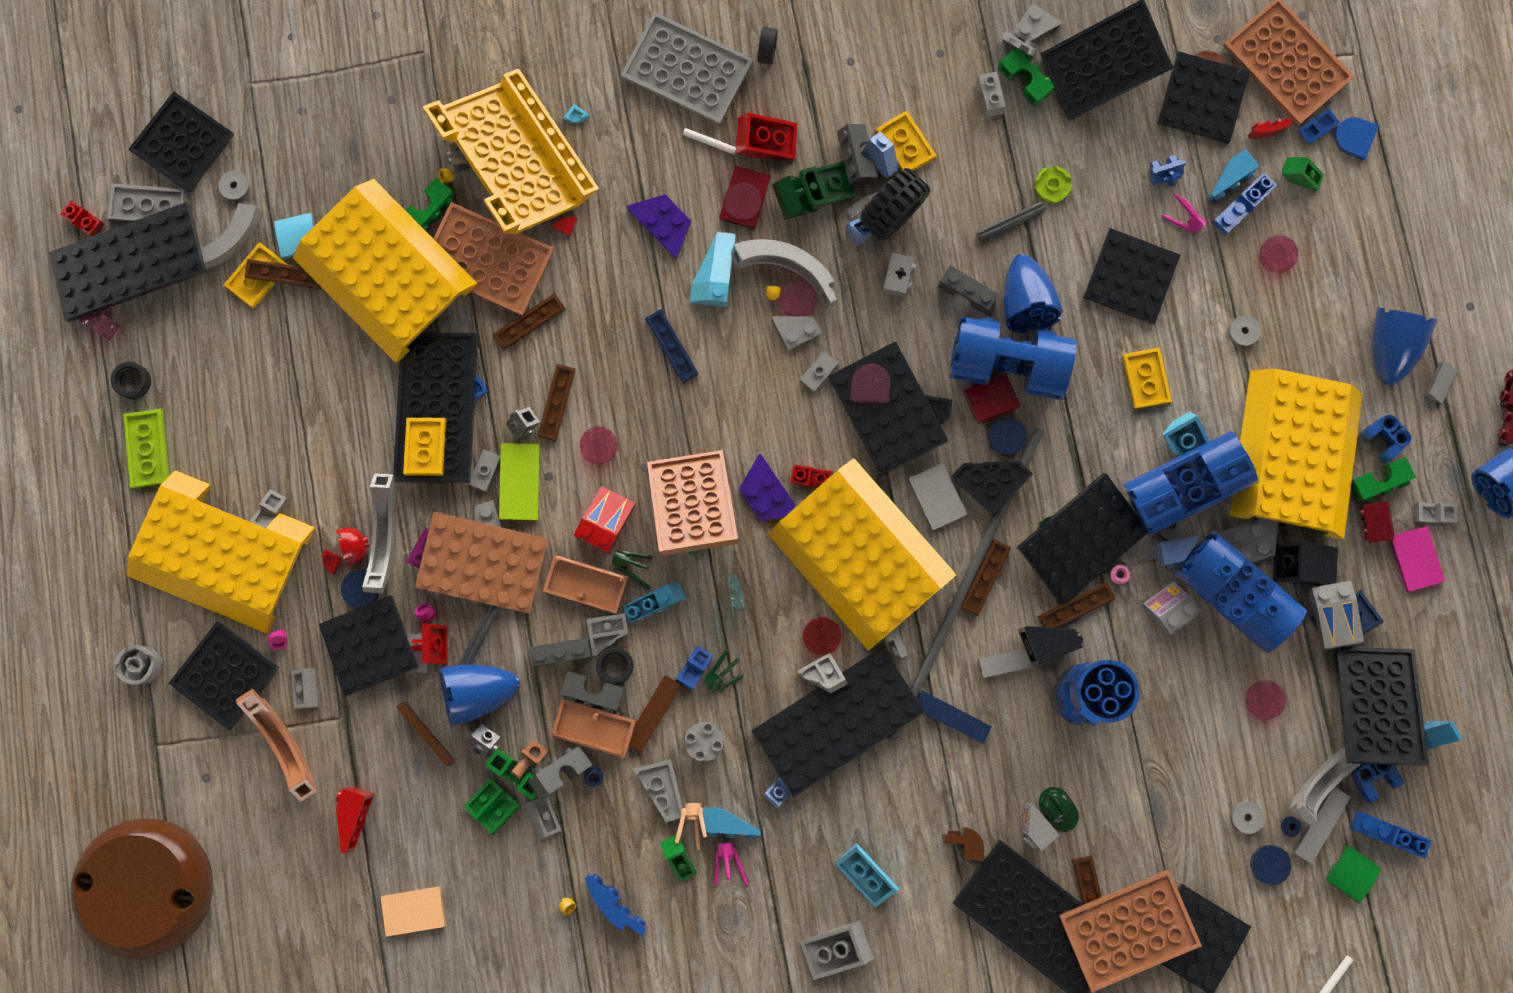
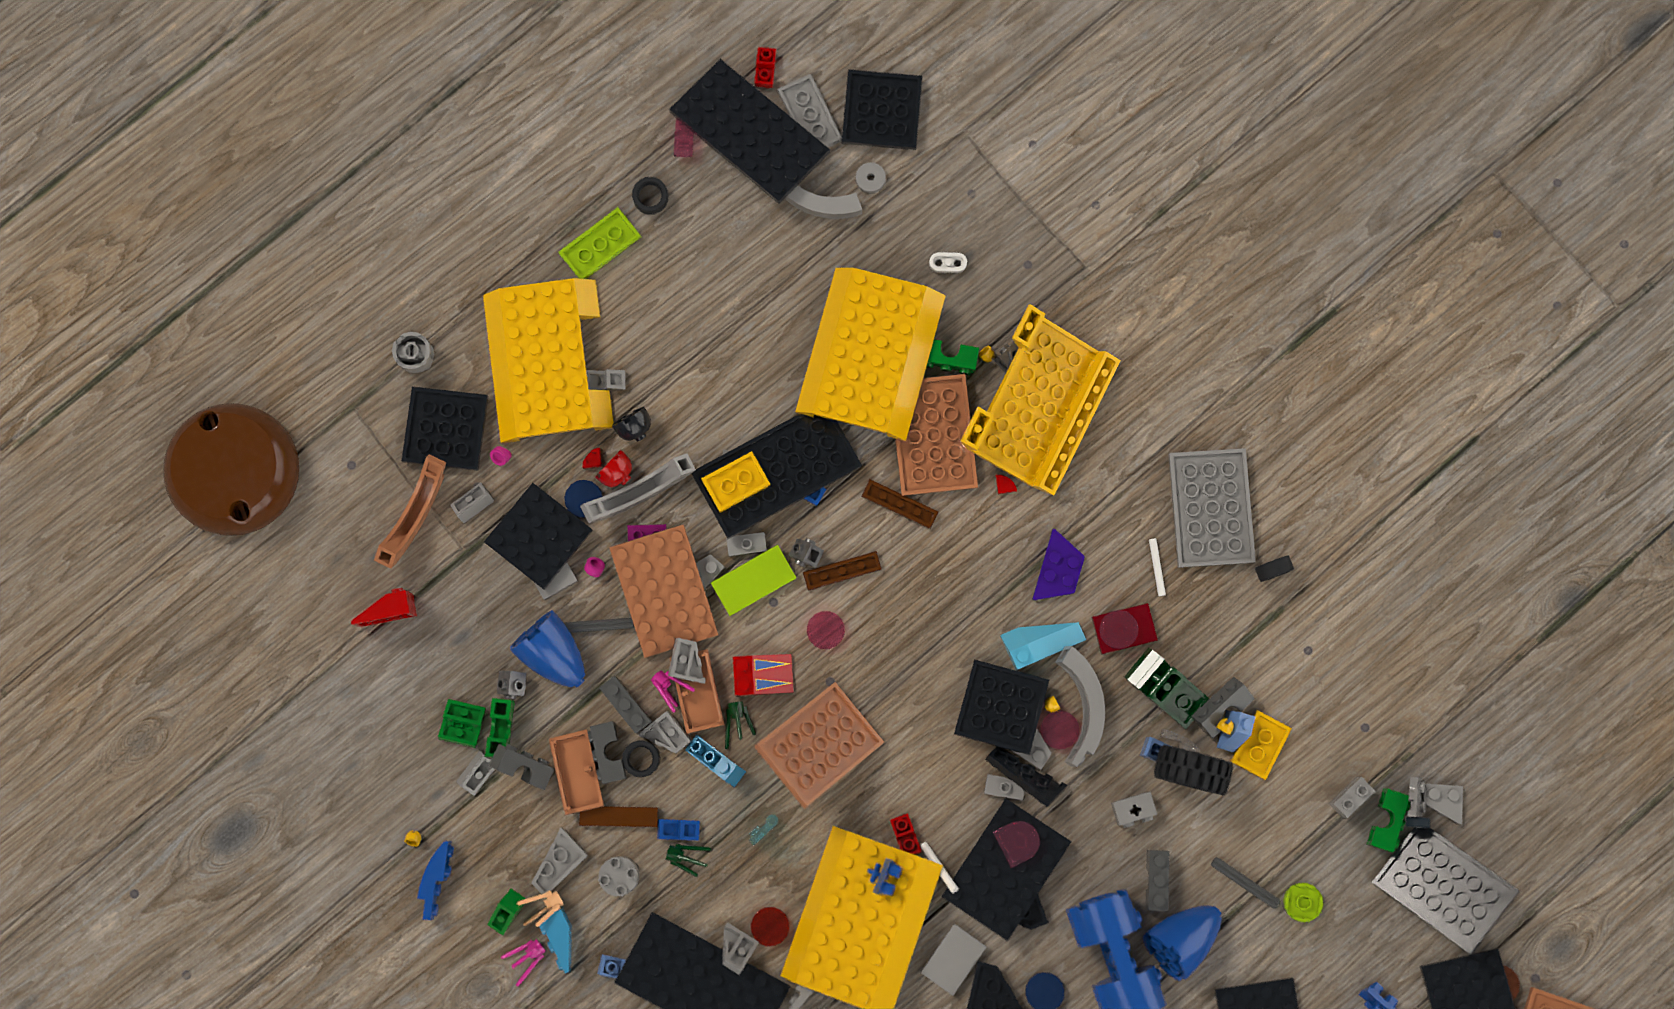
camera: 60 degrees right, 0 degrees up
(252, 290) = (803, 244): yellow tile -> none
(279, 274) = (815, 264): reddish brown tile -> none
(291, 231) = (857, 254): medium azure slope -> none
(322, 508) = (633, 425): none -> black cylinder
(346, 163) = (948, 262): none -> white plate
(413, 911) = (336, 708): light nougat tile -> none
(425, 733) = (491, 630): reddish brown tile -> none
(433, 644) = (570, 590): red tile -> none
(528, 760) = (517, 730): nougat bracket -> none
(554, 578) = (685, 661): none -> light grey wing
(559, 609) = (662, 682): none -> dark pink plant
(575, 115) = (1110, 434): medium azure tile -> none
(593, 782) = (531, 800): dark blue plate -> none
(671, 346) = (951, 642): dark blue tile -> none
(750, 334) = (1001, 707): none -> black plate
(765, 492) = (868, 803): dark purple wing -> none
(766, 137) = (1190, 616): red slope -> none
(819, 348) = (1025, 776): none -> black wing
(831, 501) = (882, 885): none -> blue hips
(863, 462) = (944, 874): none -> white bar
(872, 161) = (1223, 726): none -> yellow hinge
(991, 399) = (1068, 959): dark red piece -> none
(1041, 53) = (1418, 822): none -> black wheel

